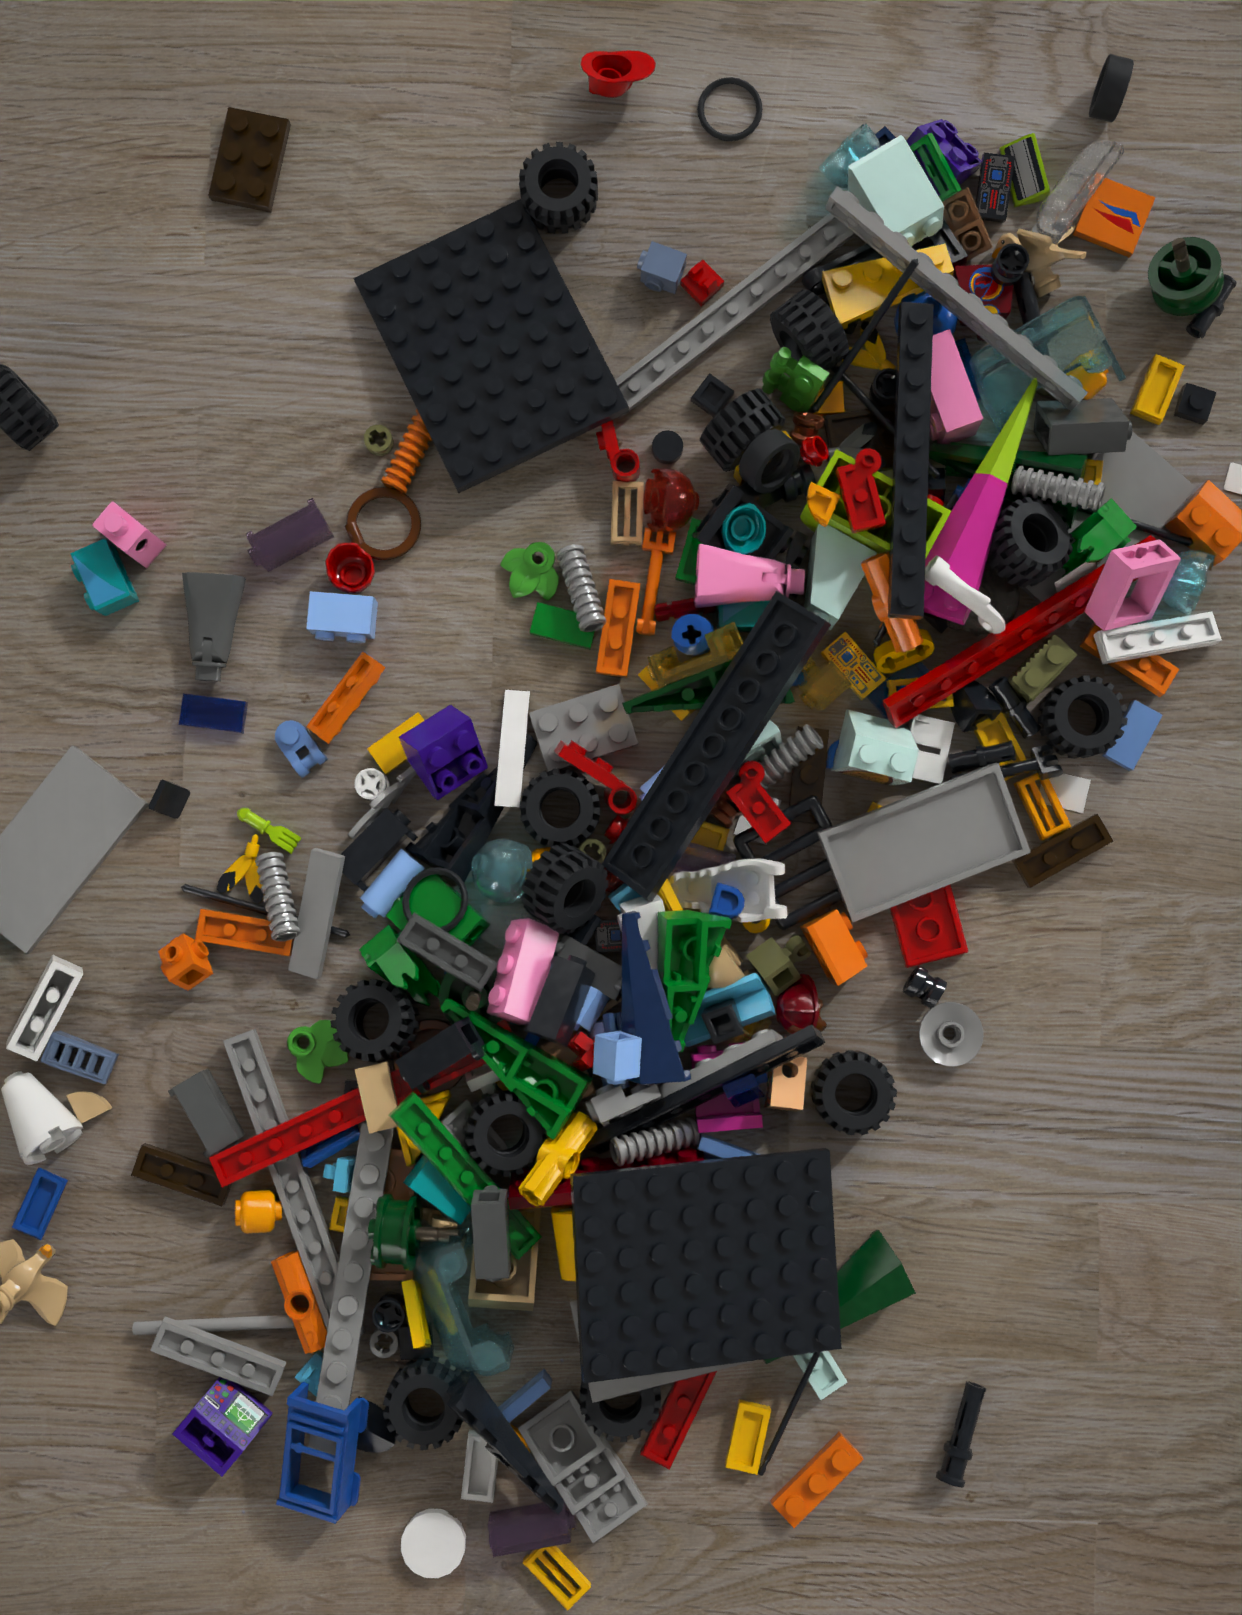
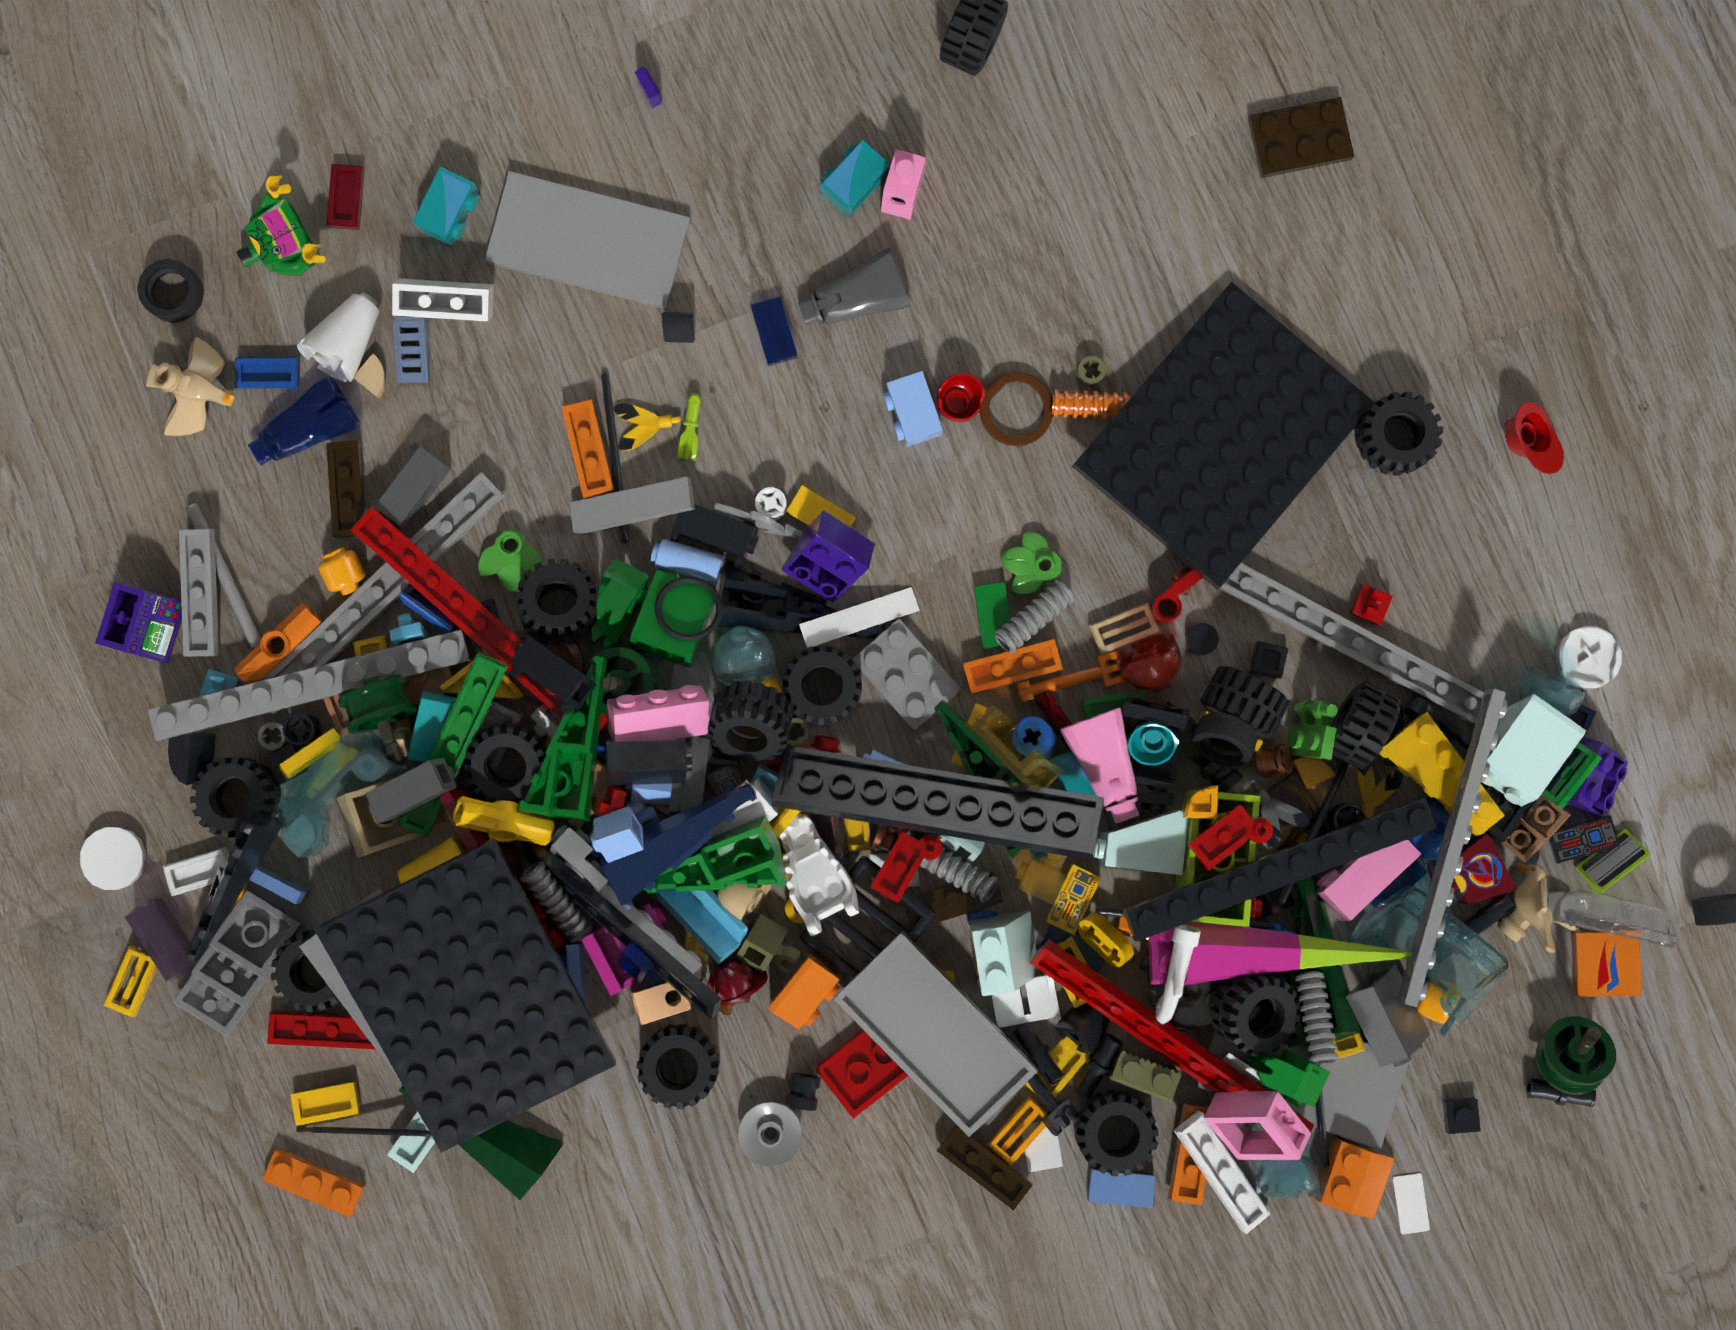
camera: 60 degrees right, 0 degrees up
(103, 1183) = (307, 422): none -> clear blue piece
(185, 962) = (537, 407): orange brick -> none
(277, 896) = (632, 463): light grey piece -> none
(289, 537) = (965, 329): clear purple brick -> none
(294, 737) = (781, 412): medium blue plate -> none
(331, 1424) = (182, 723): blue piece -> none
(346, 697) = (840, 445): orange plate -> none
(377, 1095) = (490, 633): tan tile -> none
(447, 952) = (646, 640): dark grey tile -> none
(601, 772) = (871, 709): red plate -> none
(661, 267) = (1367, 561): sand blue brick -> none
(723, 1021) = (691, 918): black slope -> none
(727, 901) = (801, 875): blue tile -> none
(736, 81) = (1550, 589): black tyre -> none
(814, 451) = (1255, 776): red plate -> none
(832, 111) = (1589, 656): none -> white tile
(865, 335) = (1382, 777): black axle -> none
(903, 632) = (1117, 932): orange piece -> none
(958, 1448) = (395, 1301): black pin -> none
(1015, 259) = (1517, 884): black wheel -> none
(1157, 389) = (1459, 1074): yellow tile -> none

